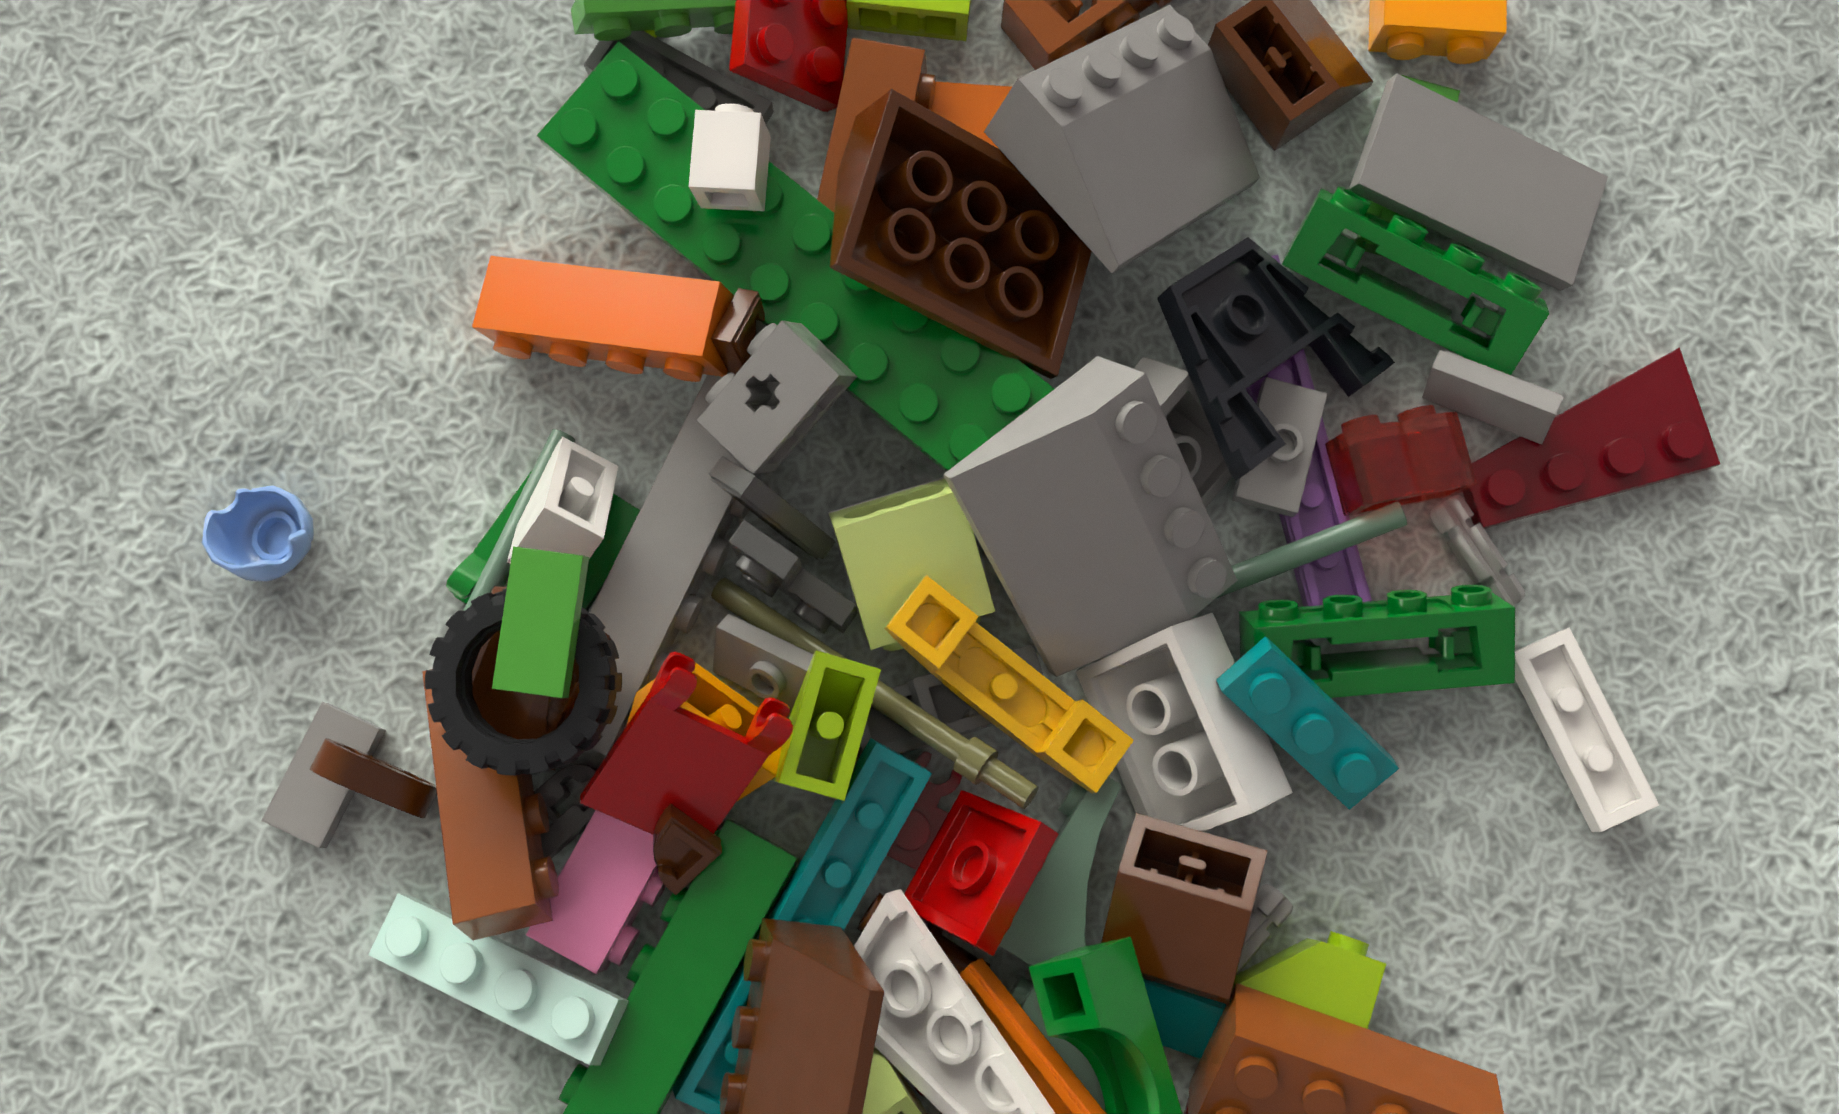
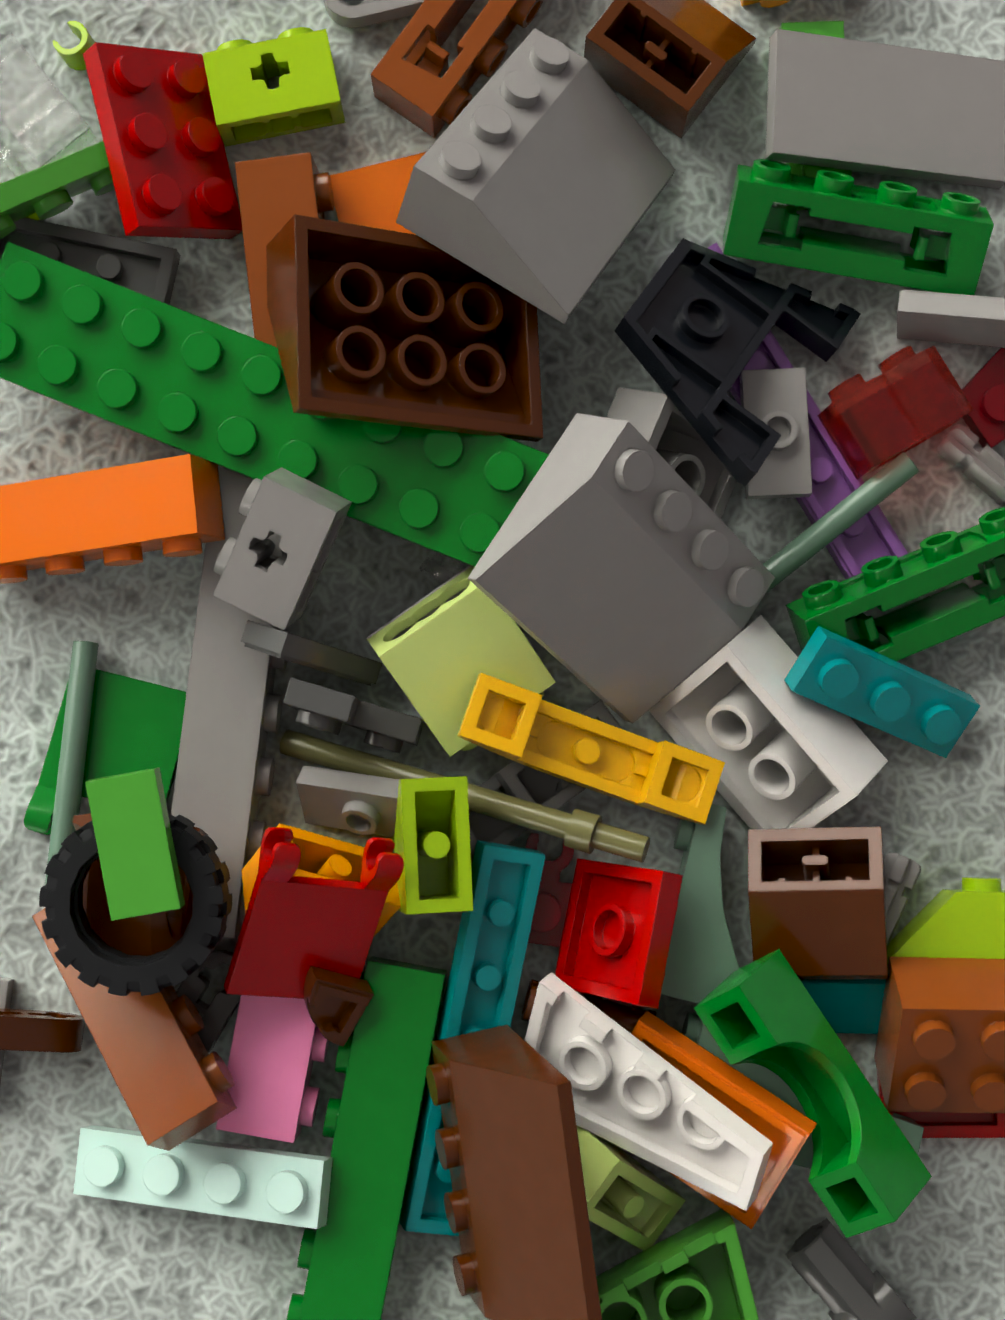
camera: 15 degrees left, 5 degrees up
(569, 503) = (115, 716): white slope -> none
(729, 158) = (158, 329): white brick -> none
(738, 328) = (222, 493): reddish brown tile -> none

